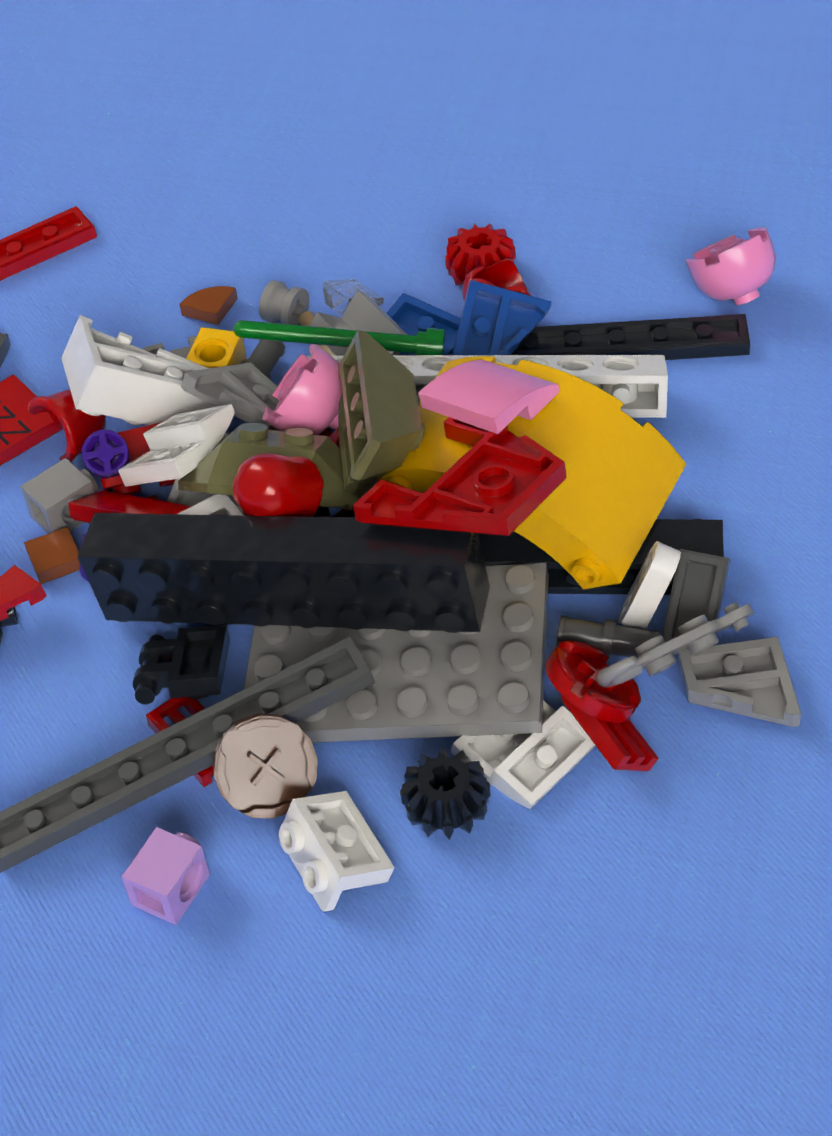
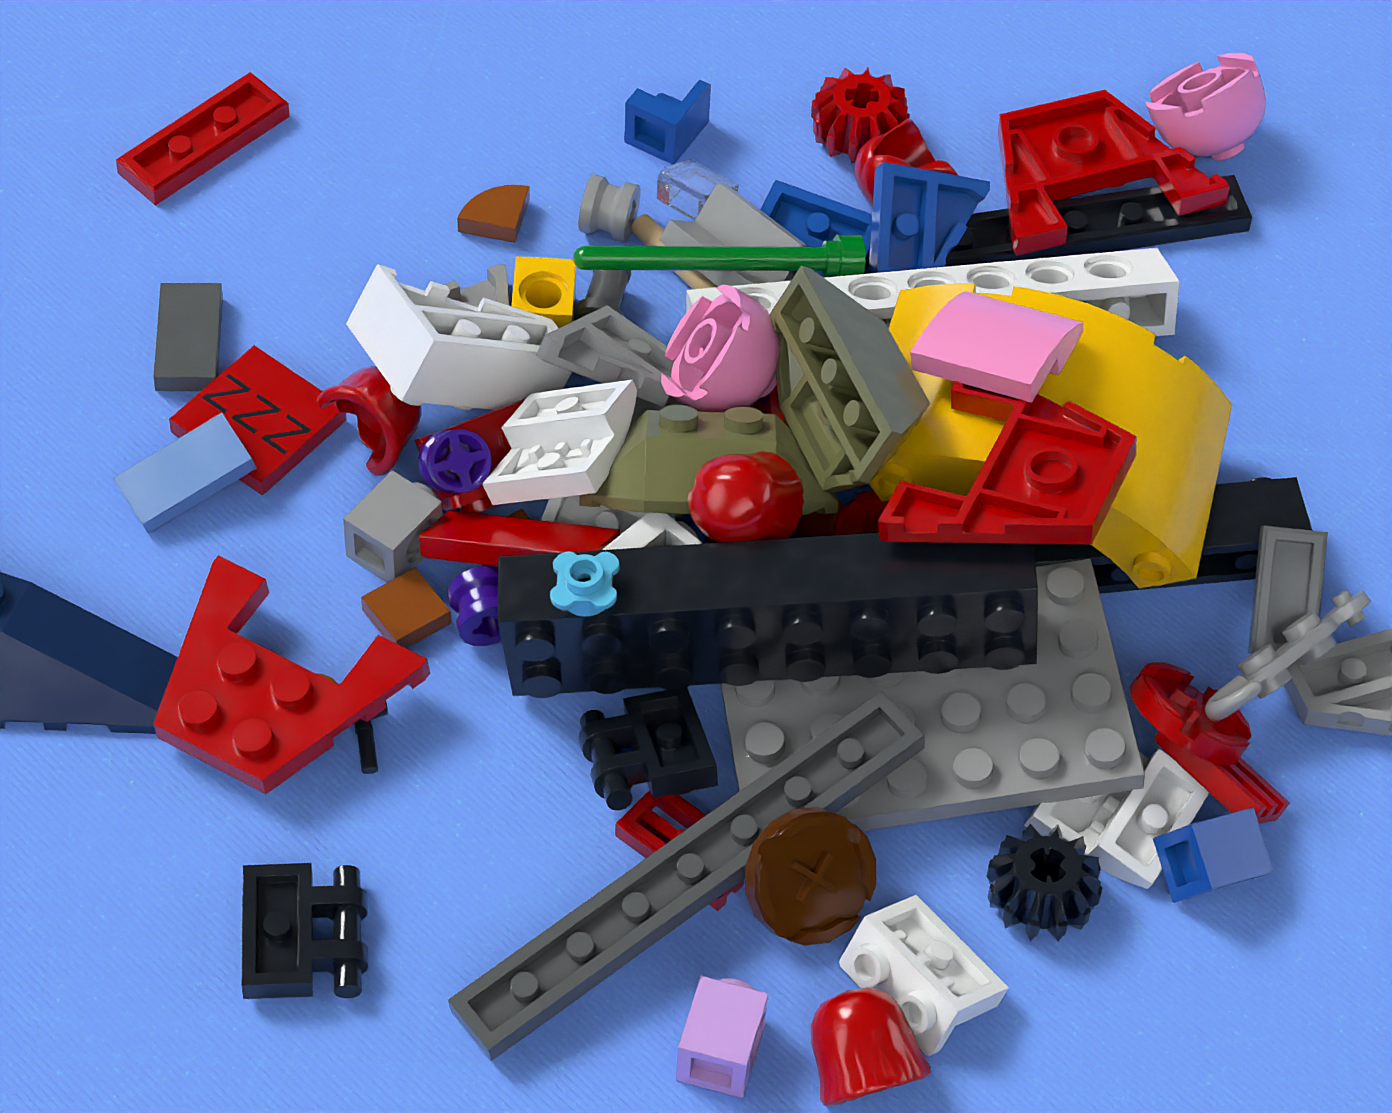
camera: 20 degrees left, 5 degrees up
(140, 534) = (584, 597): none -> medium azure plate
(268, 894) = (863, 1046): none -> red hair
(346, 256) = (665, 124): none -> blue panel
(581, 786) = (1213, 854): none -> blue panel
(604, 636) = (1184, 649): dark grey pin -> none
(636, 288) = (1083, 148): none -> red wing
(649, 586) = (1228, 578): white beam -> none

